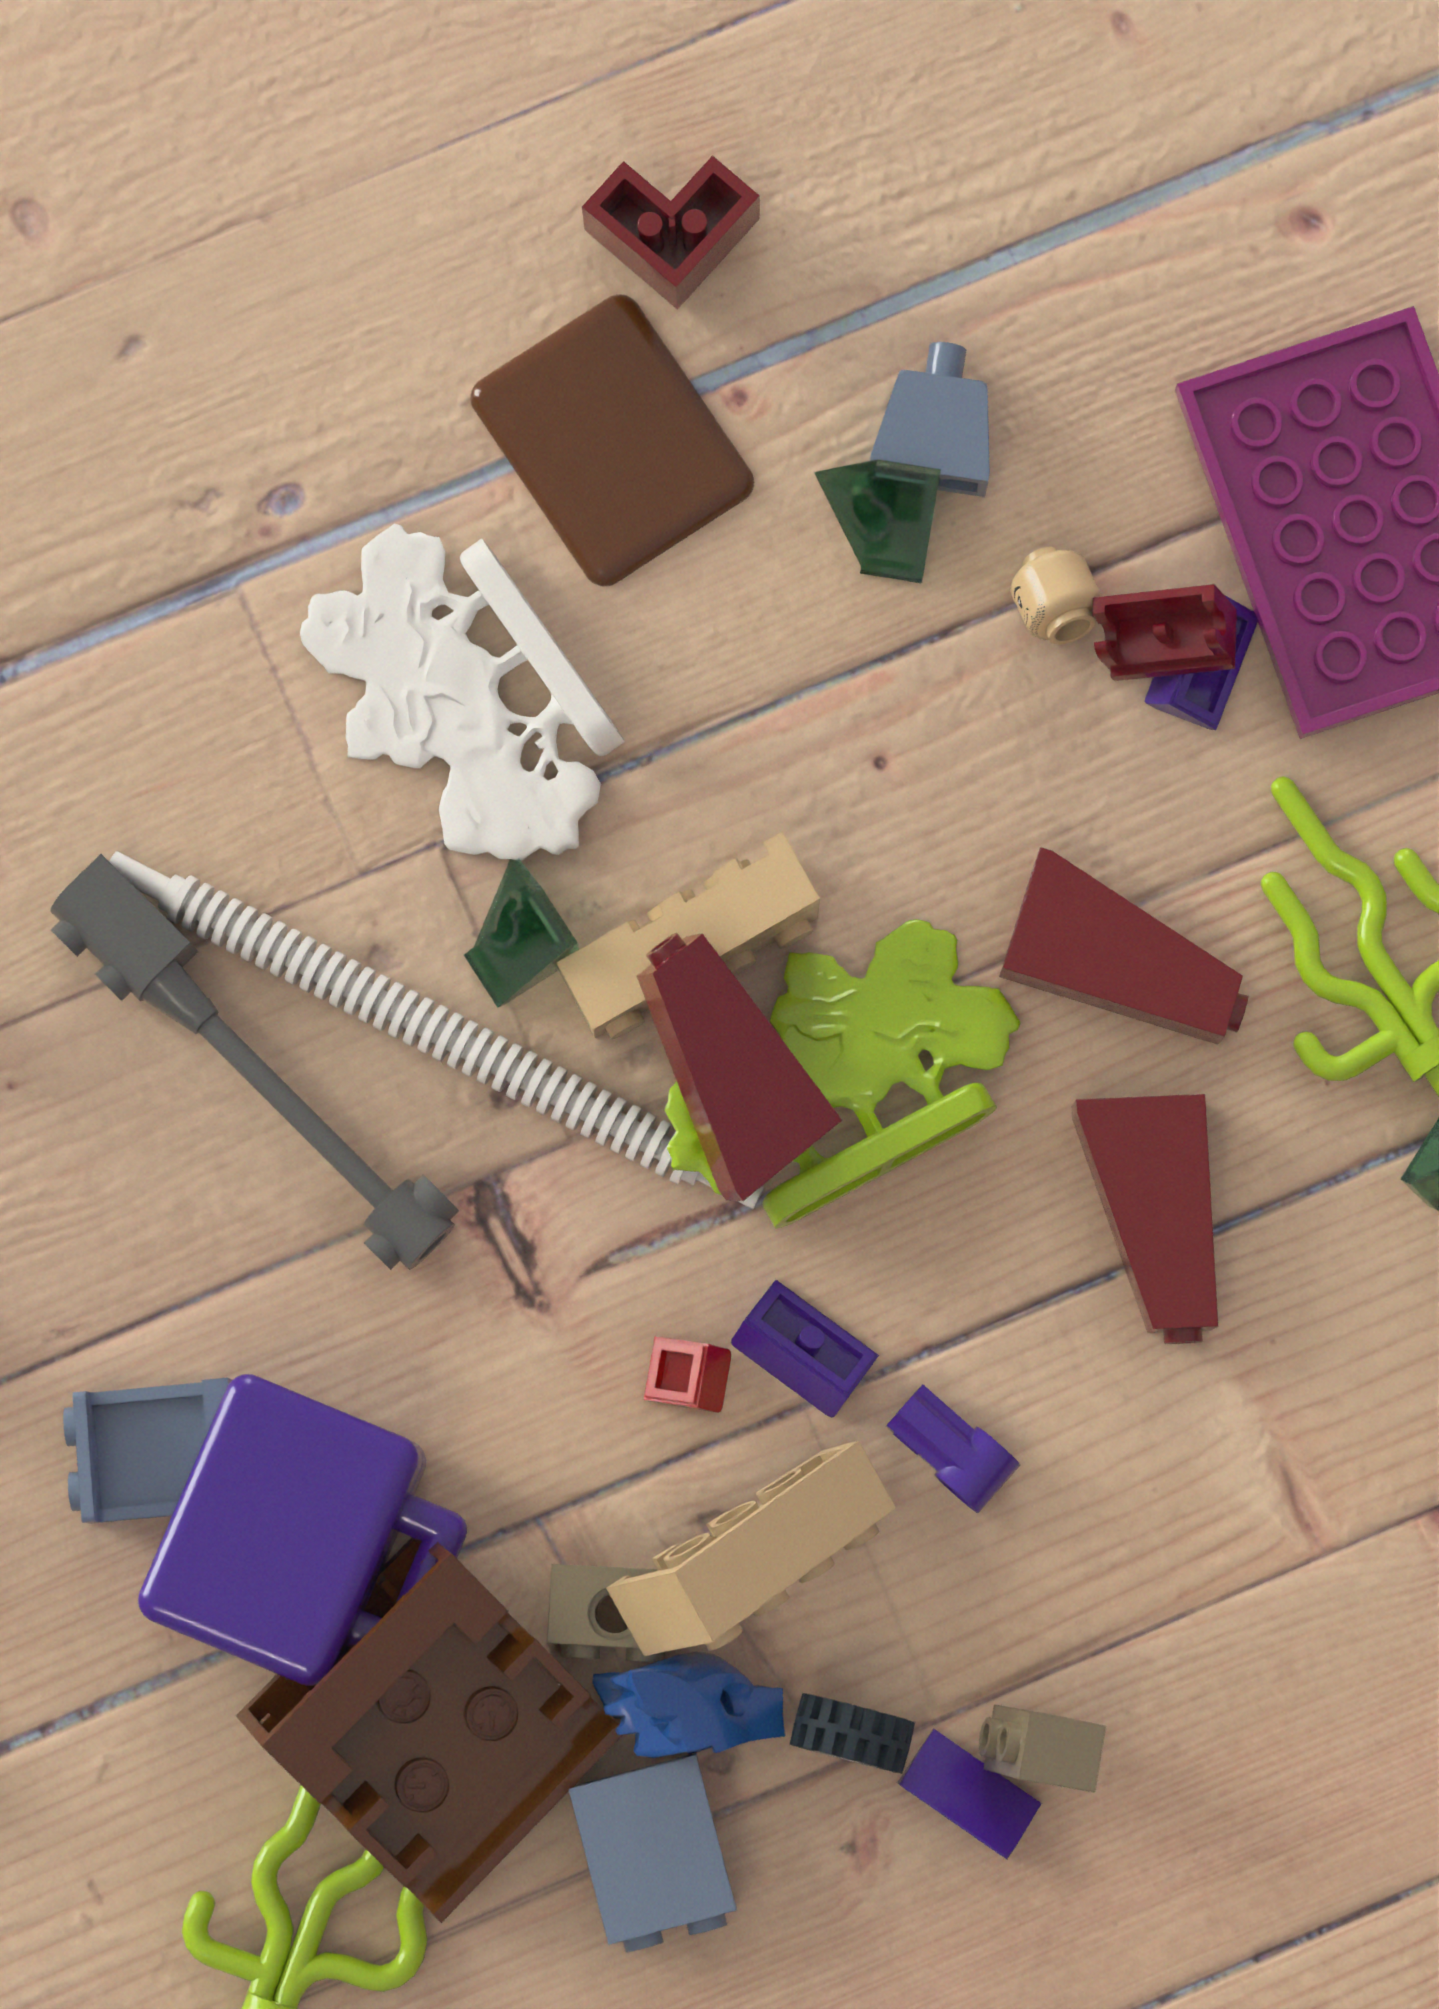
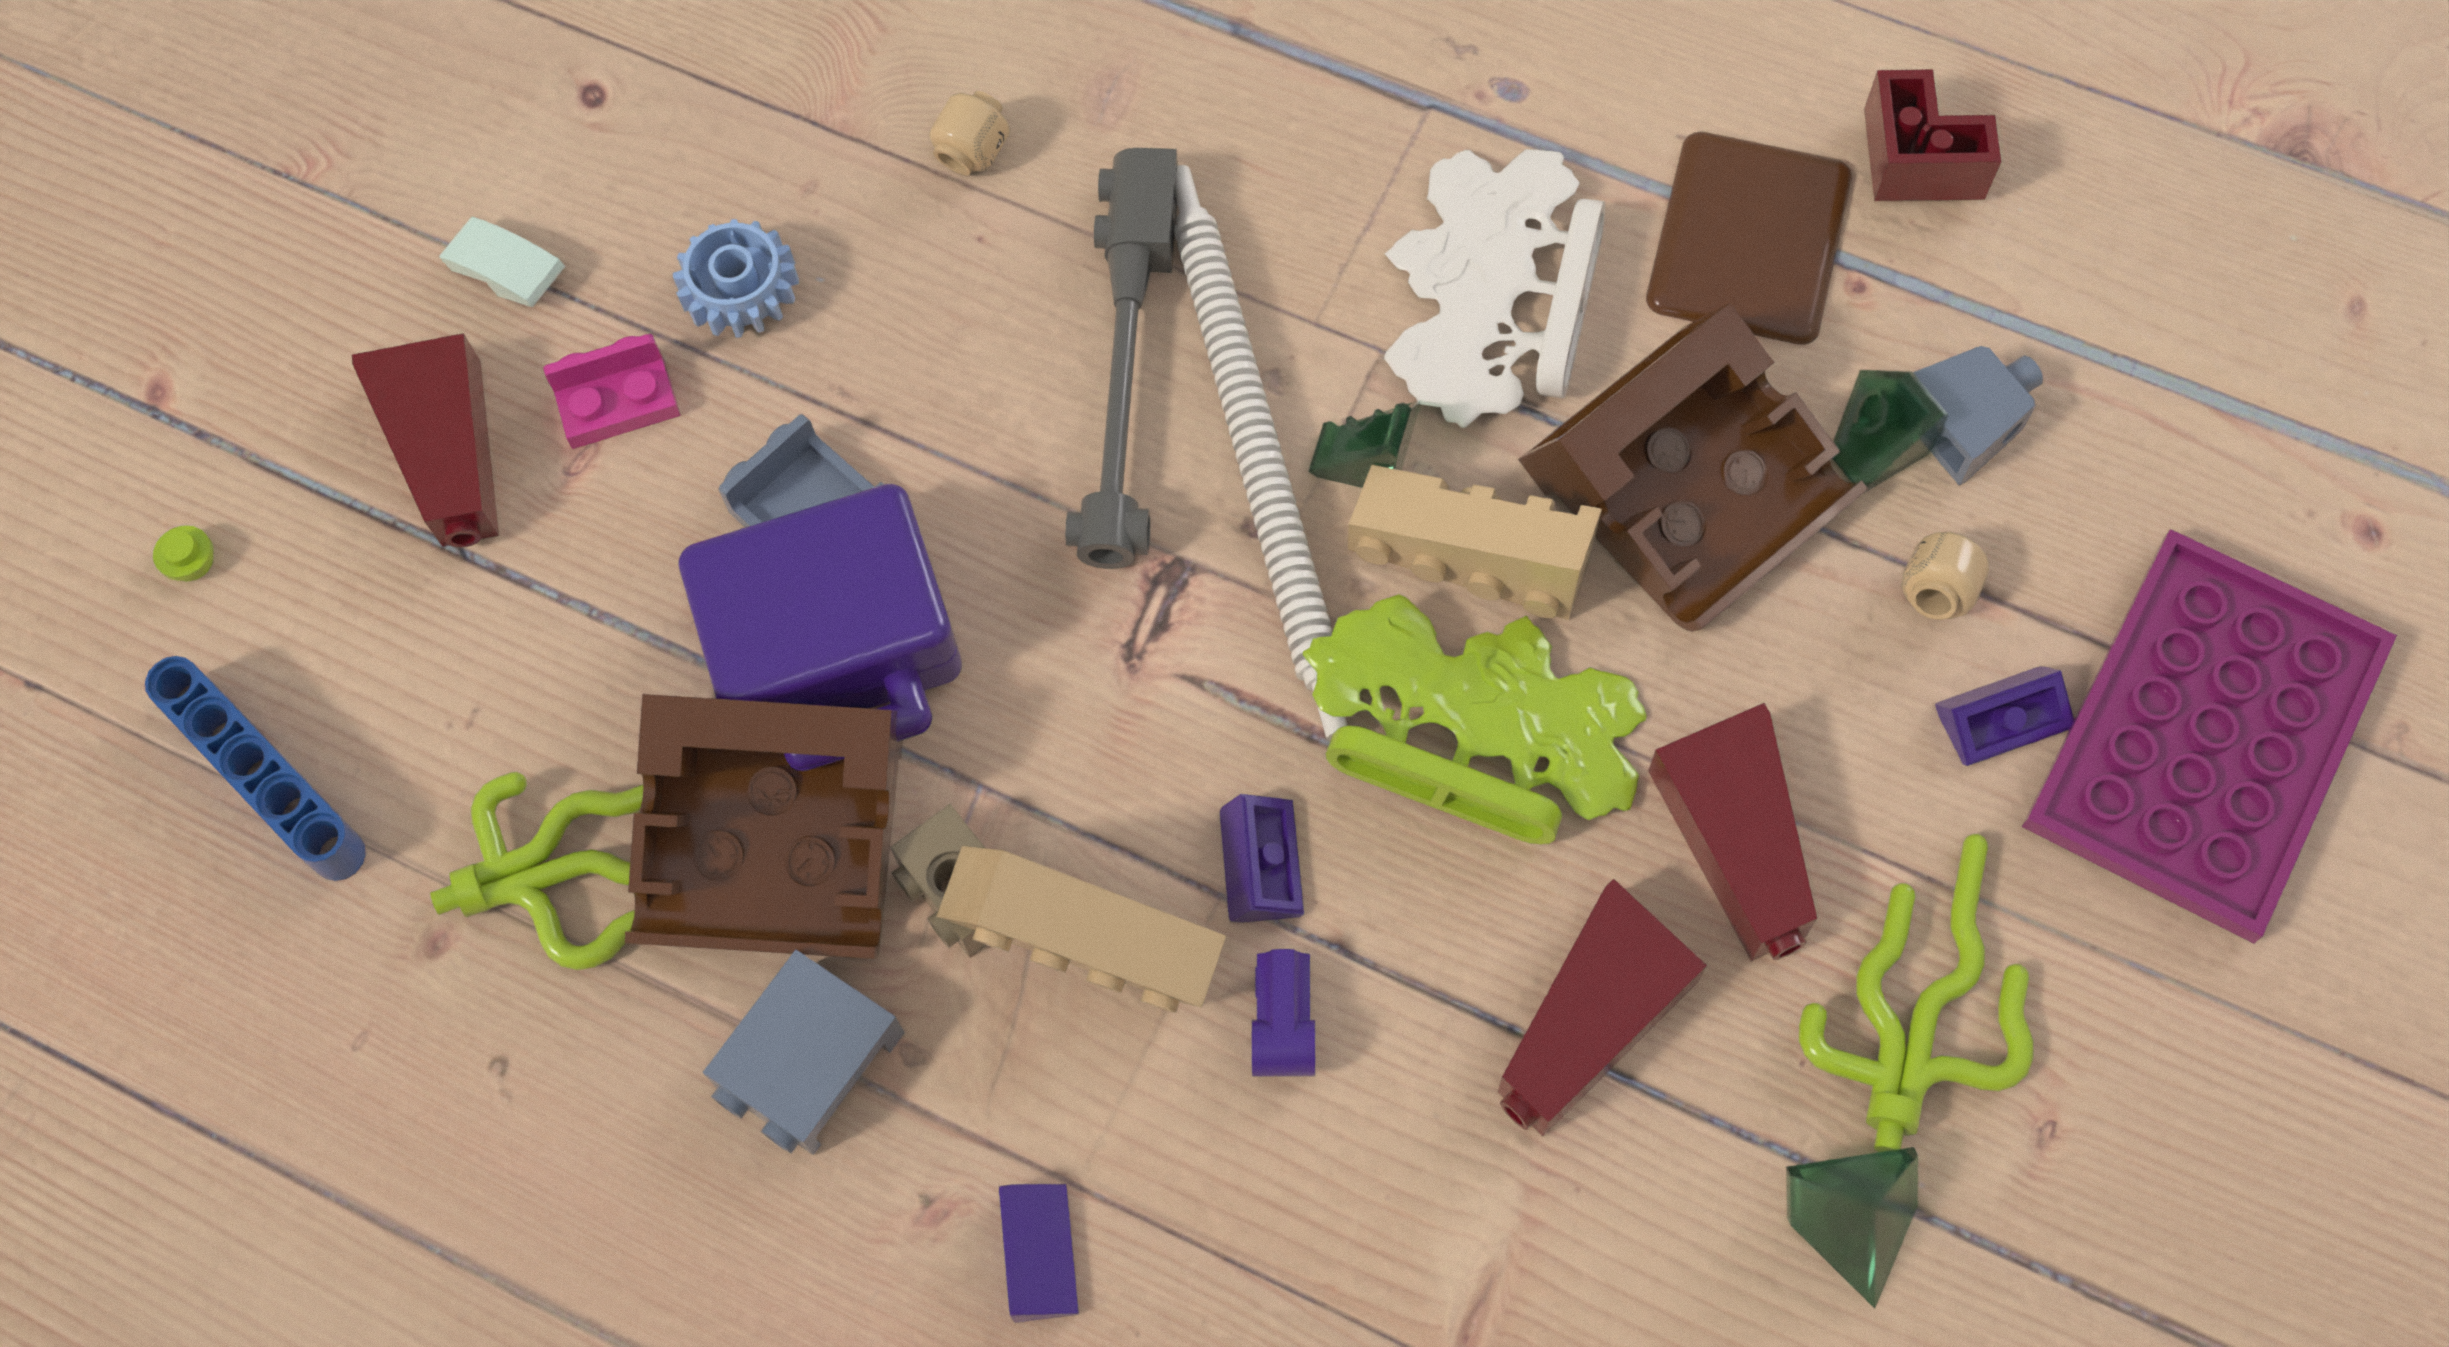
camera: 50 degrees right, 15 degrees down
(678, 1705) = (914, 978): blue piece -> none
(688, 1374) = (1172, 798): red slope -> none
(733, 1069) = (1405, 629): dark red slope -> none
(788, 701) = (1696, 469): none -> reddish brown panel
(852, 1733) = (1007, 1116): black wheel -> none
(1042, 1747) = (1115, 1261): dark tan brick -> none
(1166, 632) = (1999, 658): dark red hinge -> none

